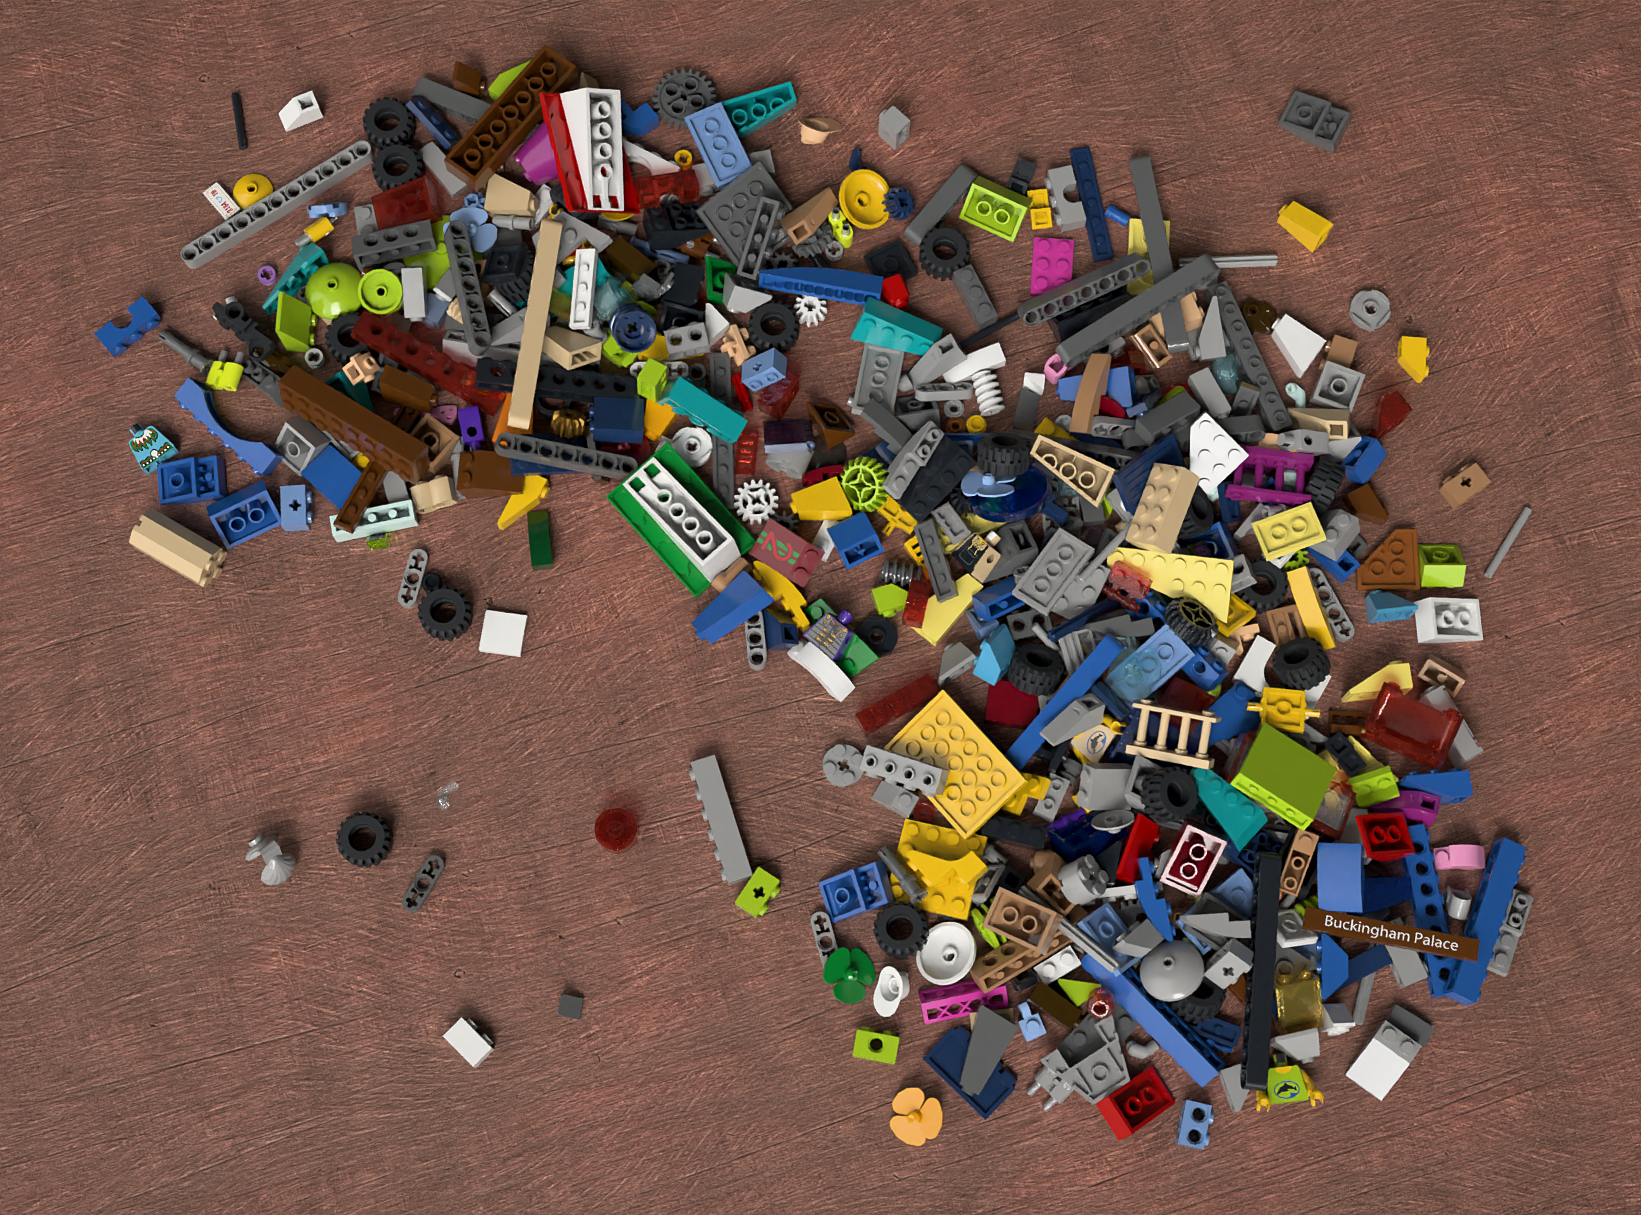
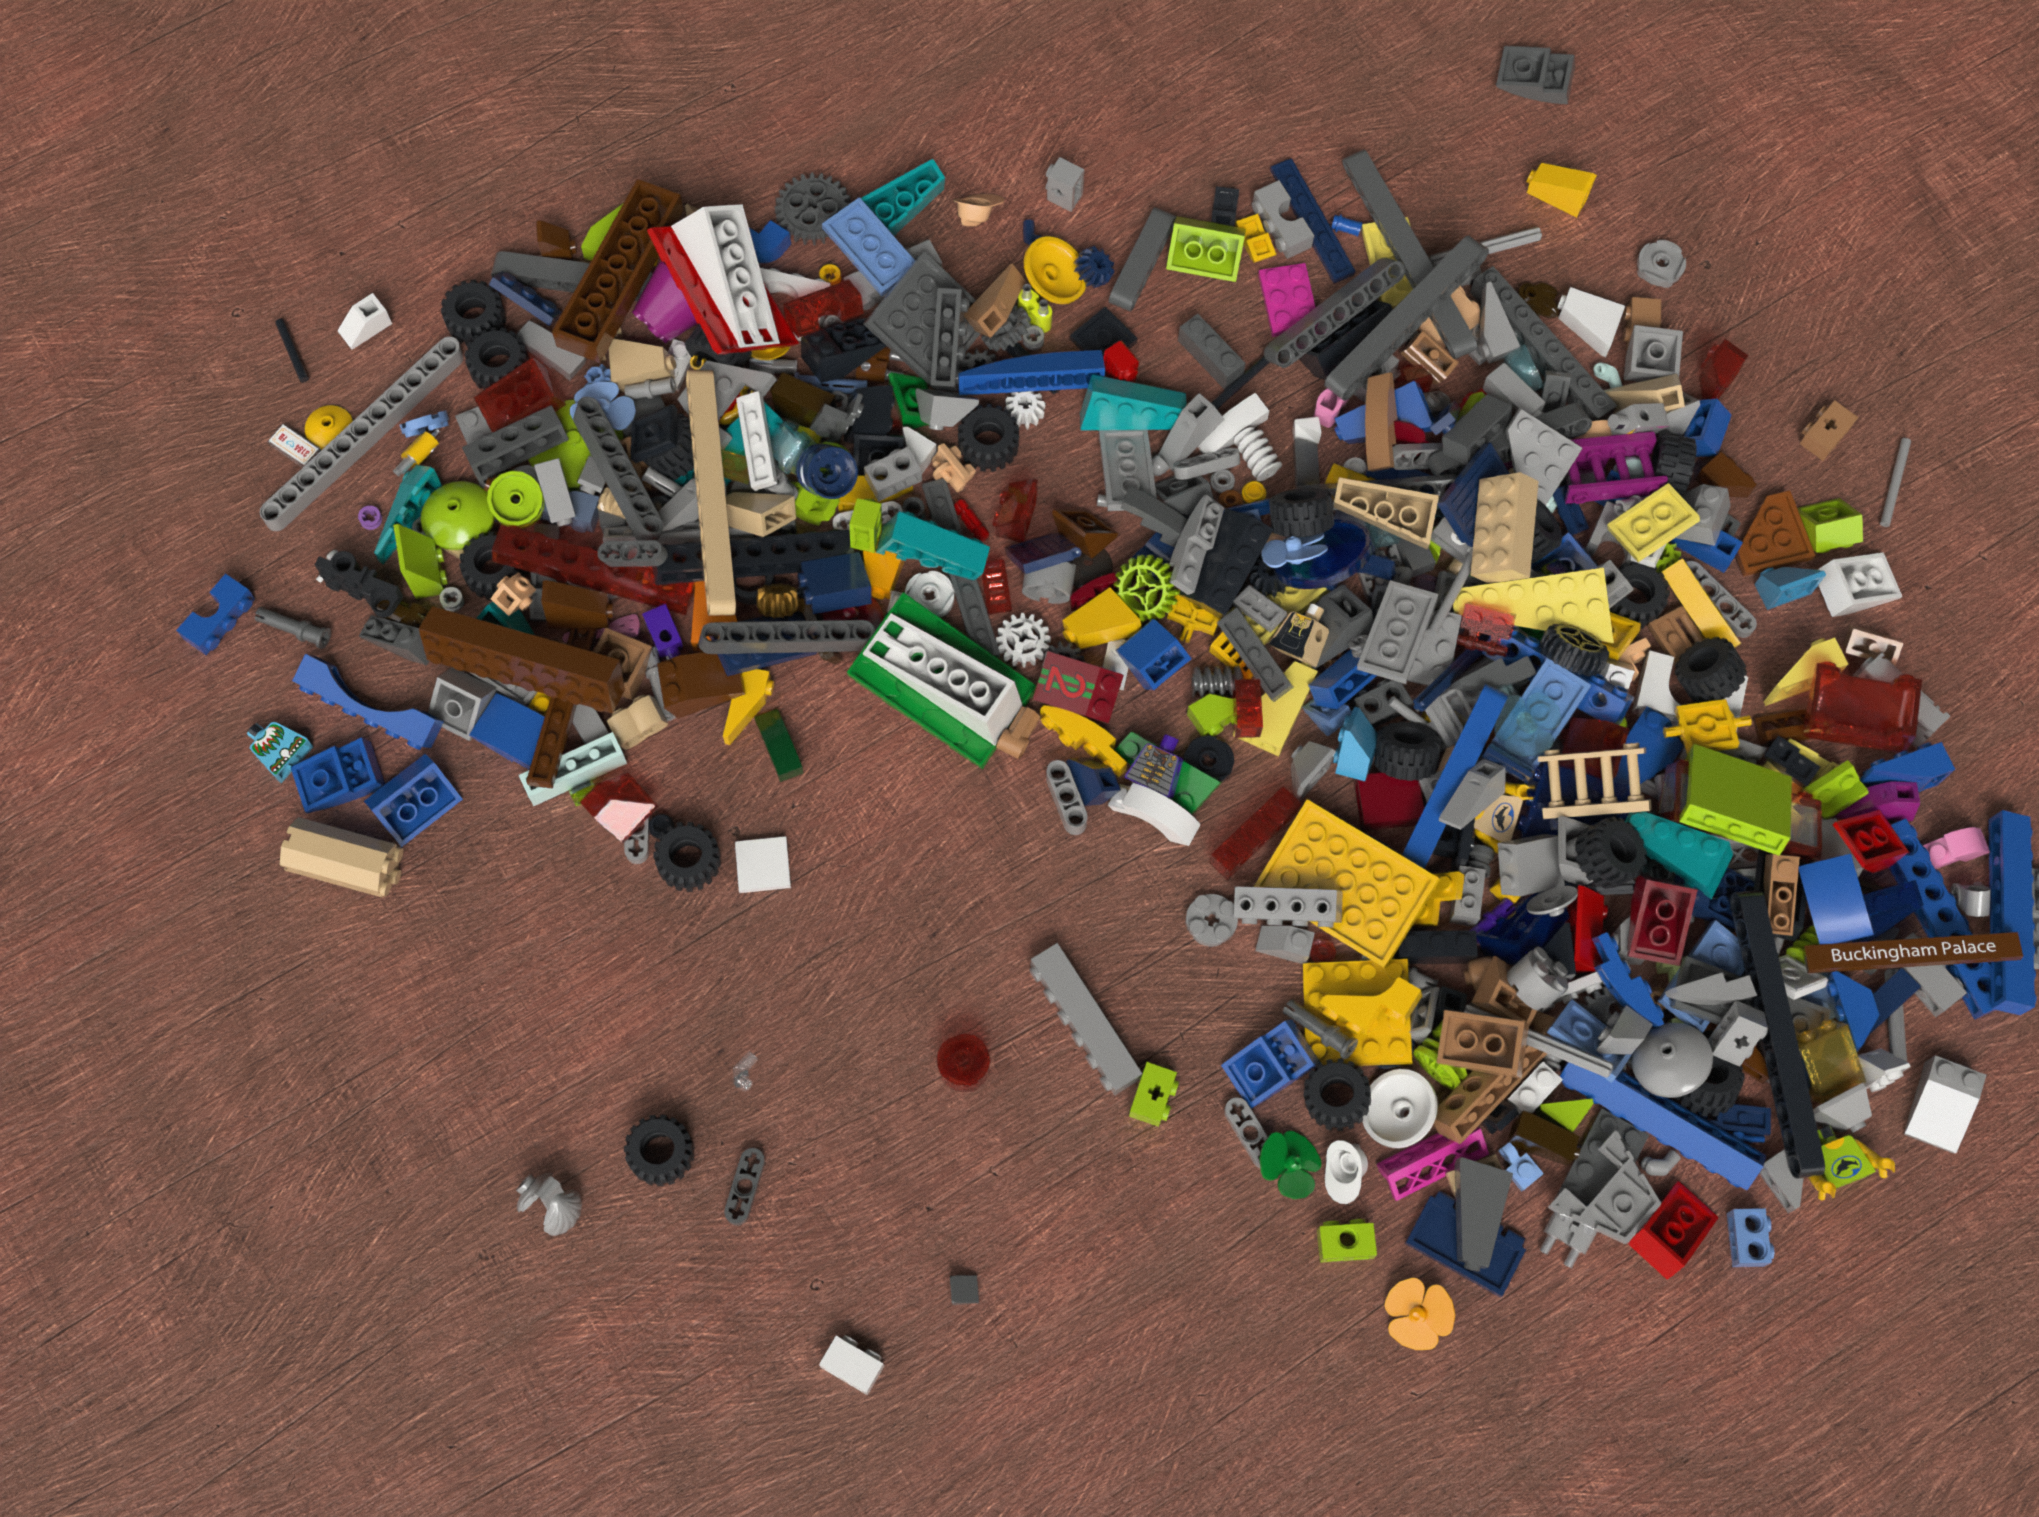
camera: 15 degrees left, 5 degrees down
(225, 375) = (350, 642): neon yellow piece -> none
(290, 498) = (464, 766): medium blue brick -> none
(402, 559) = (619, 805): none -> clear red slope
(466, 365) = (641, 557): none -> dark grey beam
(731, 608) = (1030, 766): blue slope -> none
(764, 369) = (991, 486): medium blue brick -> none
(944, 237) = (1161, 292): black tyre -> none
(1100, 1003) = (1600, 1120): clear red head -> none
(1410, 1025) = (1961, 1053): dark grey slope -> none
(1412, 357) = (1725, 303): yellow slope -> none

